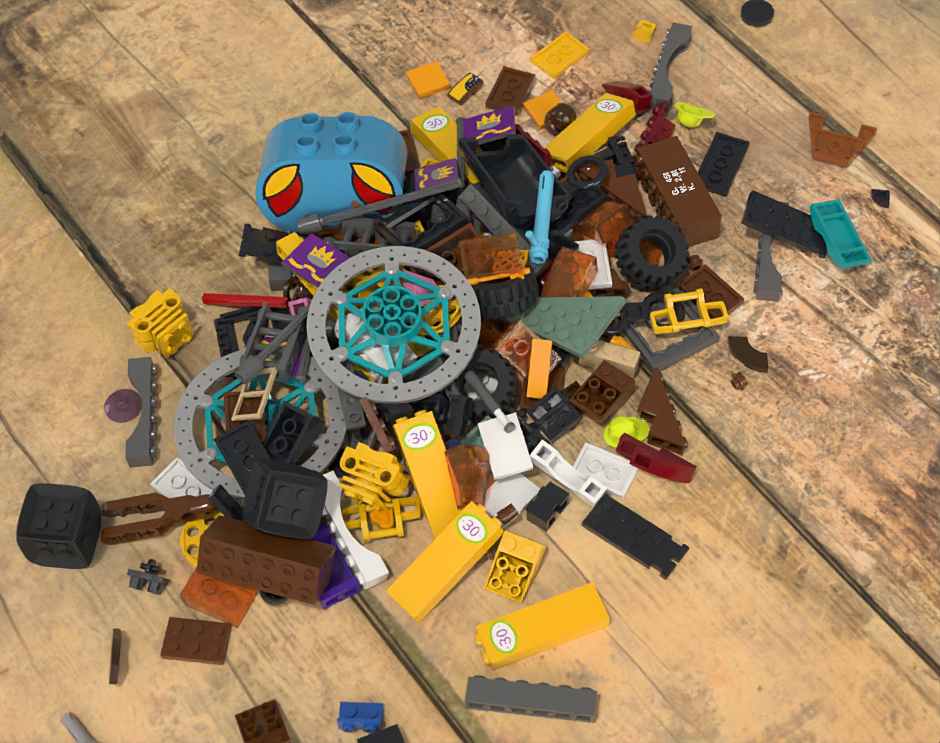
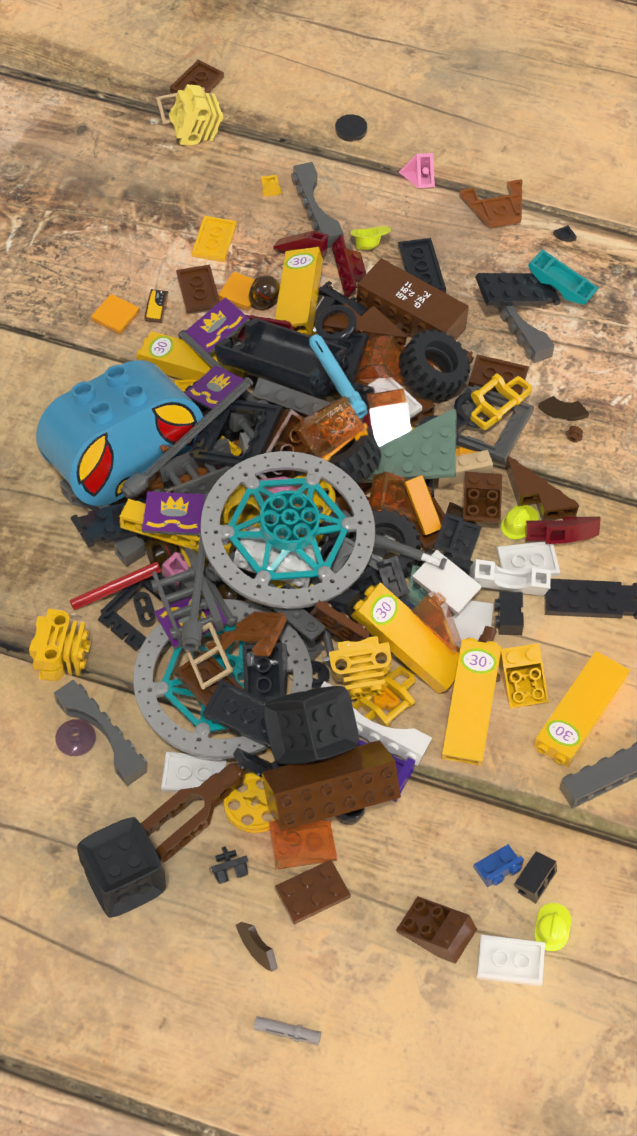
camera: 40 degrees left, 0 degrees up
(307, 396) = (256, 627): none -> dark orange wing
(788, 78) = (420, 170): none -> bright pink slope

